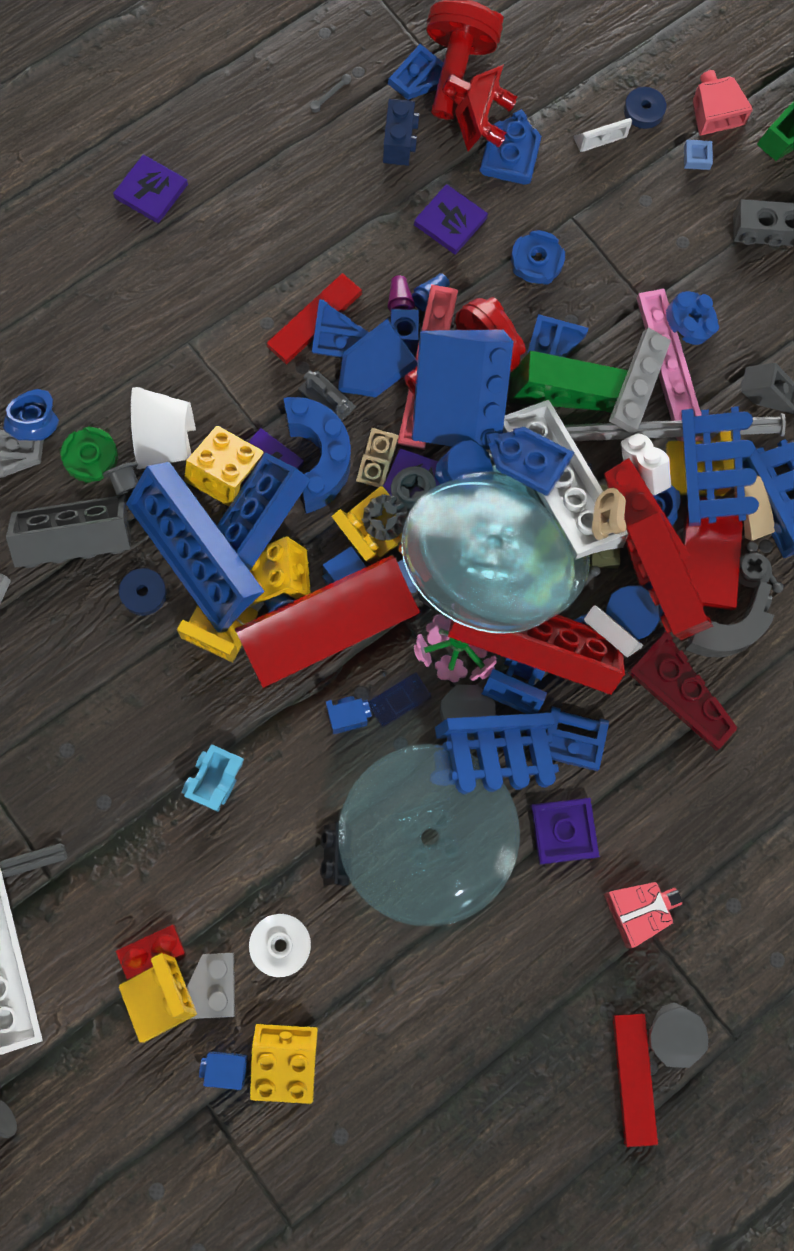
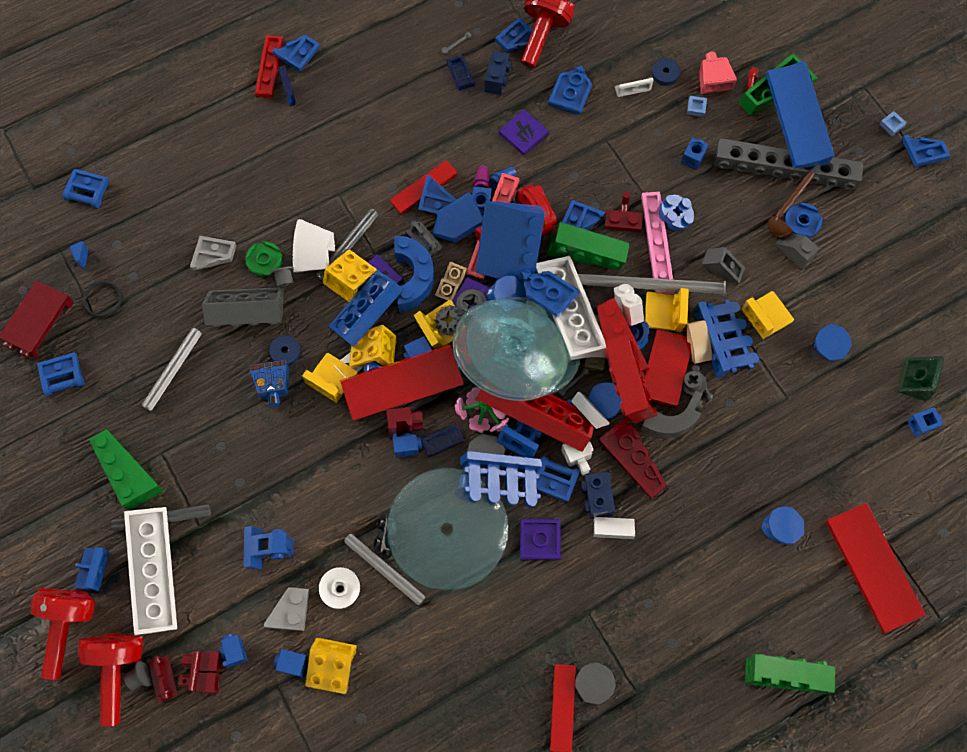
camera: 15 degrees right, 5 degrees down
(31, 416) = (230, 230): blue hat -> none
(32, 1120) = (163, 678): none -> dark red hinge
(52, 155) = (268, 67): none -> red tile
(85, 183) = (287, 86): none -> clear blue tile
(87, 1116) = (200, 663): none -> dark red hips
(93, 129) = (297, 52): none -> blue wing
(129, 641) = (271, 380): none -> blue torso
(132, 1062) = (232, 650): none -> blue brick
(137, 956) = (255, 582): red tile -> none
(150, 188) = (329, 93): dark purple tile -> none
(157, 998) = (255, 610): yellow bracket -> none
(180, 894) = (279, 546): none -> blue tile
(193, 545) = (321, 324): blue arch -> none
(214, 779) = (313, 475): medium azure cylinder -> none
(217, 409) = (352, 238): none -> dark grey axle
(339, 679) = (404, 421): none -> dark red hips
(342, 906) = (384, 569): none -> light grey axle
(343, 137) = (460, 72): none -> clear blue tile
(474, 103) = (548, 58): red connector -> none
(537, 271) = (574, 171): blue plate -> none
(597, 701) = (577, 457): none -> white brick
(609, 506) = (595, 332): tan plate -> none
(616, 336) = (623, 219): none -> dark red plate
(640, 381) = (632, 249): light grey plate -> none
(641, 754) = (598, 495): none -> dark blue brick
(641, 911) = (583, 597): coral torso -> none
(670, 800) = (614, 528): none -> white slope
(702, 234) = (693, 159): none -> blue brick
(718, 451) = (674, 319): blue fence -> none
(770, 102) = (752, 76): none -> red piece

